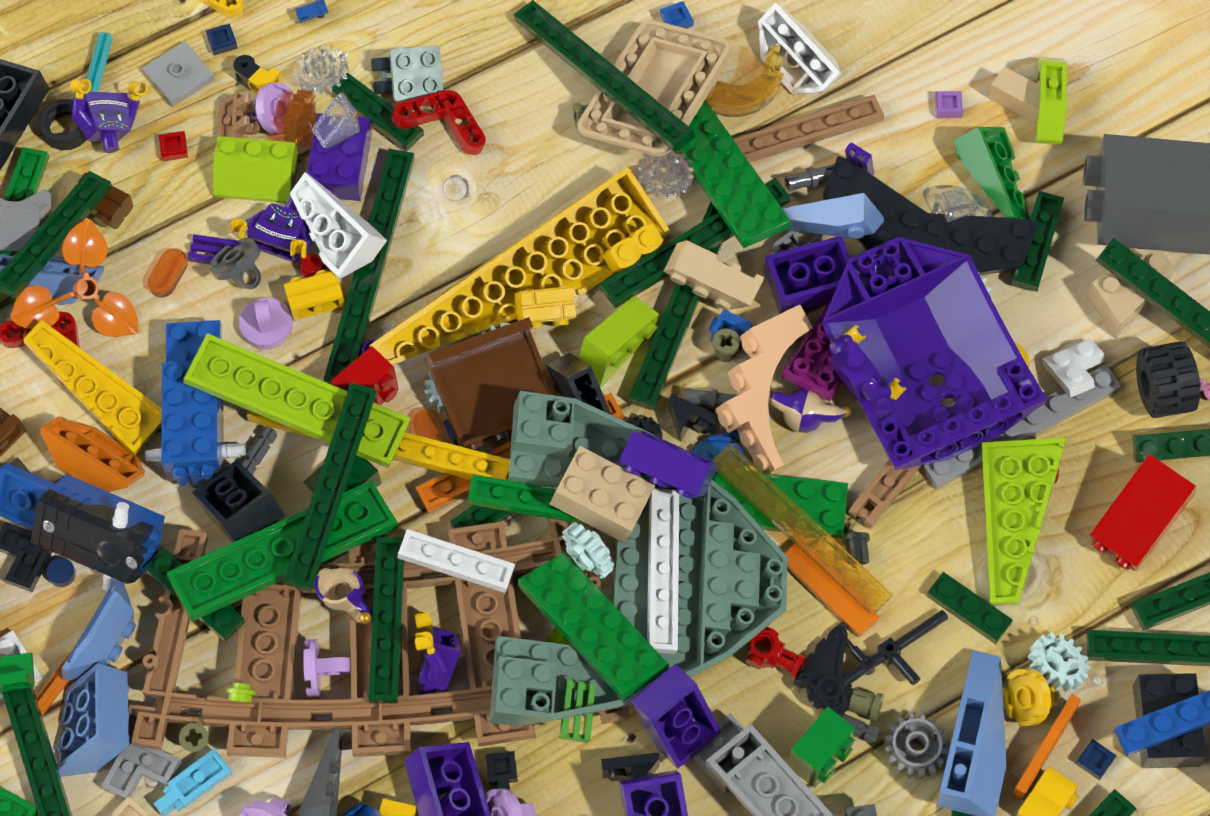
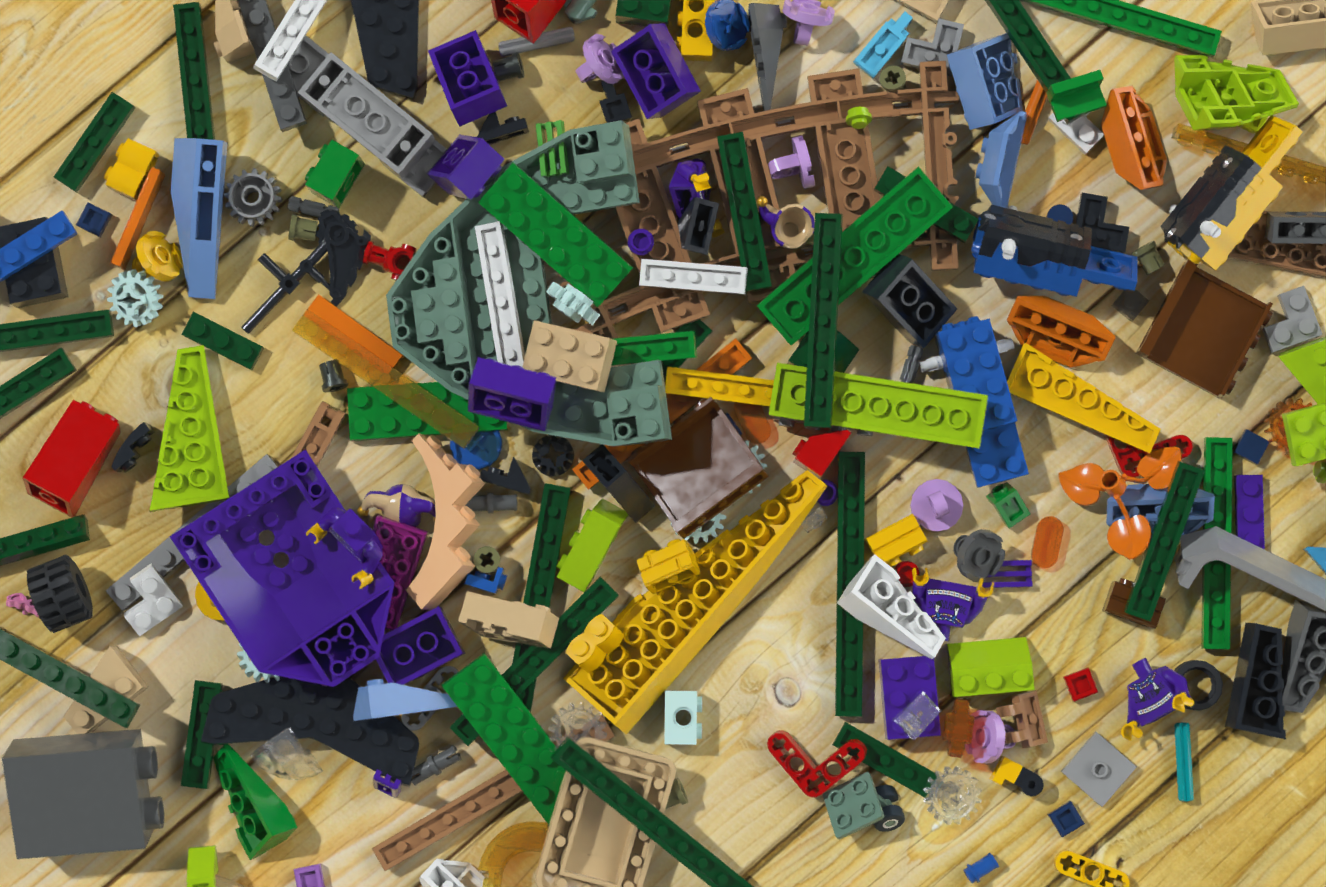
camera: 175 degrees right, 20 degrees up
(194, 306) = (1008, 504): none -> green bracket
(441, 611) = (697, 225): none -> black slope
(503, 610) = (640, 242): none -> dark purple plate
(566, 163) = (674, 731): none -> light aqua brick
(1081, 512) = (127, 455): none -> black slope

